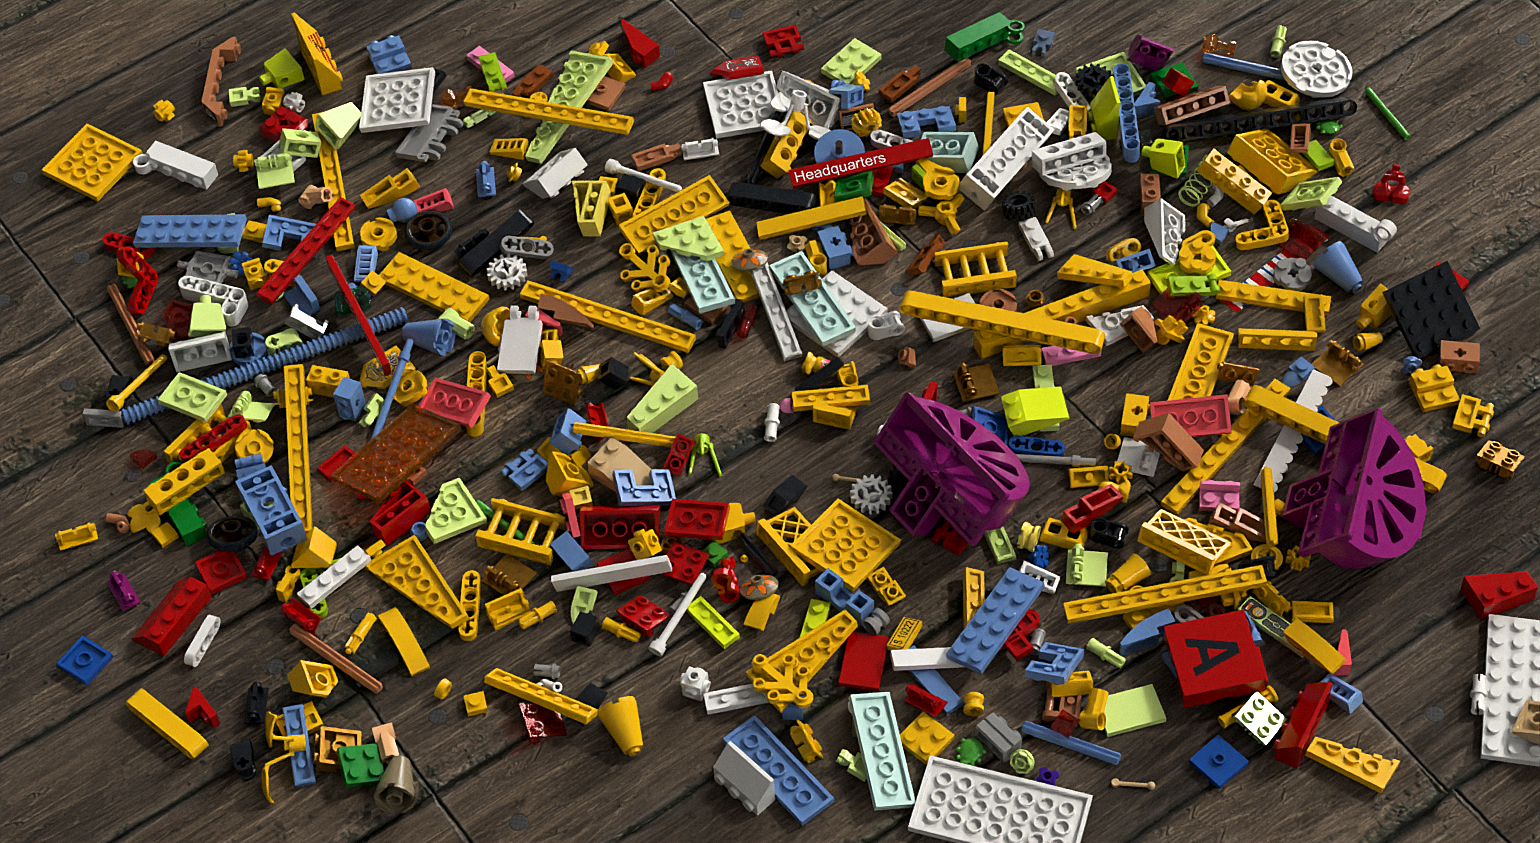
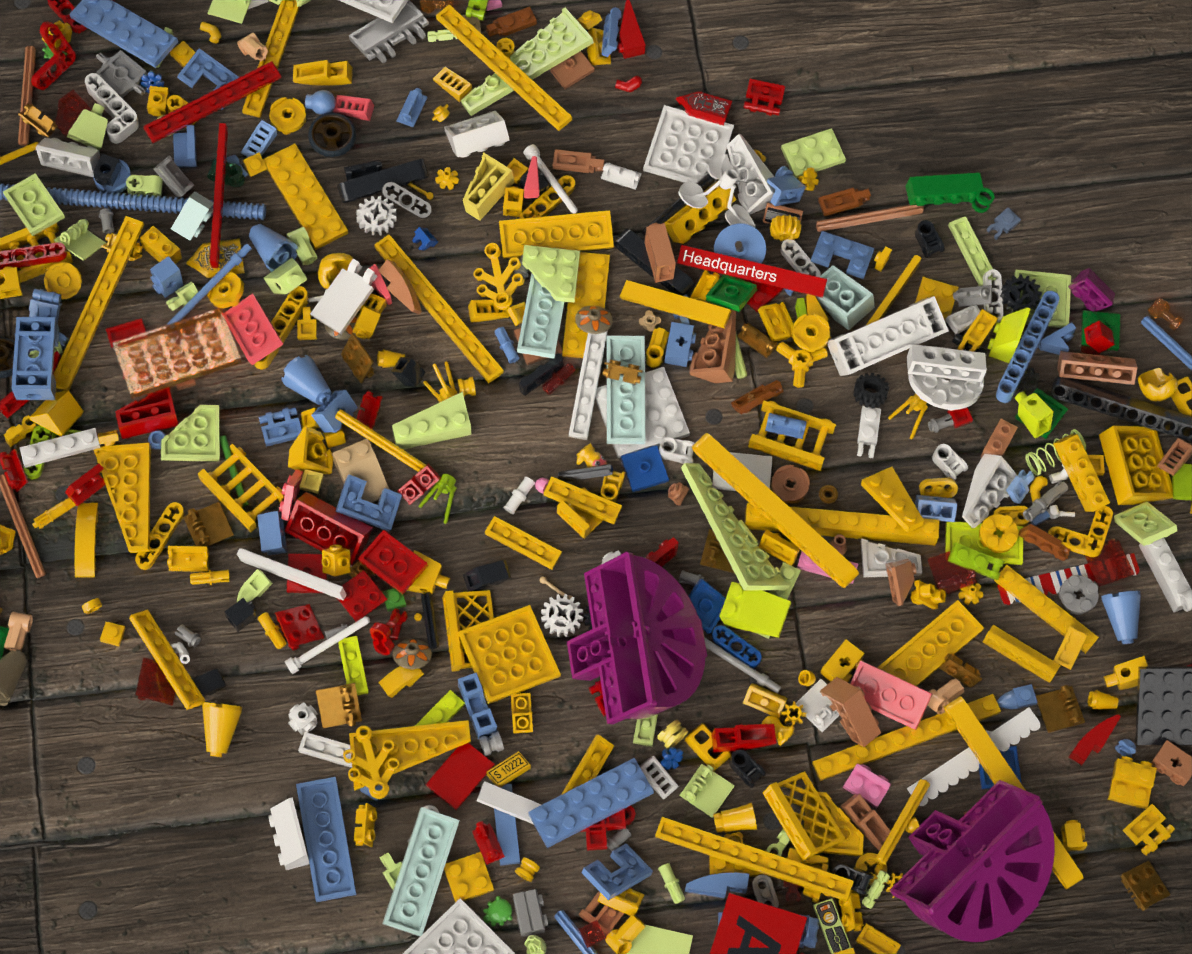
camera: 20 degrees right, 15 degrees up
(344, 339) = (192, 216): none -> light aqua brick
(377, 594) = (86, 485): none -> red bracket
(460, 346) = (287, 276): none -> yellowish green torso
(528, 418) = (306, 379): none -> medium blue cone
(550, 218) = (447, 178): none -> yellow plant
(622, 50) = (610, 32): none -> medium blue hinge
(630, 180) = (531, 187): none -> coral slope
(720, 657) = (339, 705): none -> pearl gold hinge
(775, 181) = (660, 252): none -> nougat window
(800, 456) = (523, 543): none -> yellow plate
(866, 353) = (644, 468): none -> blue plate
(966, 262) = (785, 426): none -> medium blue hinge
(985, 363) = (735, 538): none -> yellowish green wing
(1056, 100) = (974, 296): none -> light grey hinge
(1117, 227) = (949, 463): none -> white piece
(1188, 219) = (1019, 486): none -> light blue plate
(1216, 222) = (1040, 505): none -> light grey pin
(1238, 247) = (1045, 541): none -> dark orange hinge
(1282, 569) = (876, 889): none -> yellowish green axle
(1381, 372) = (1094, 740): none -> red slope

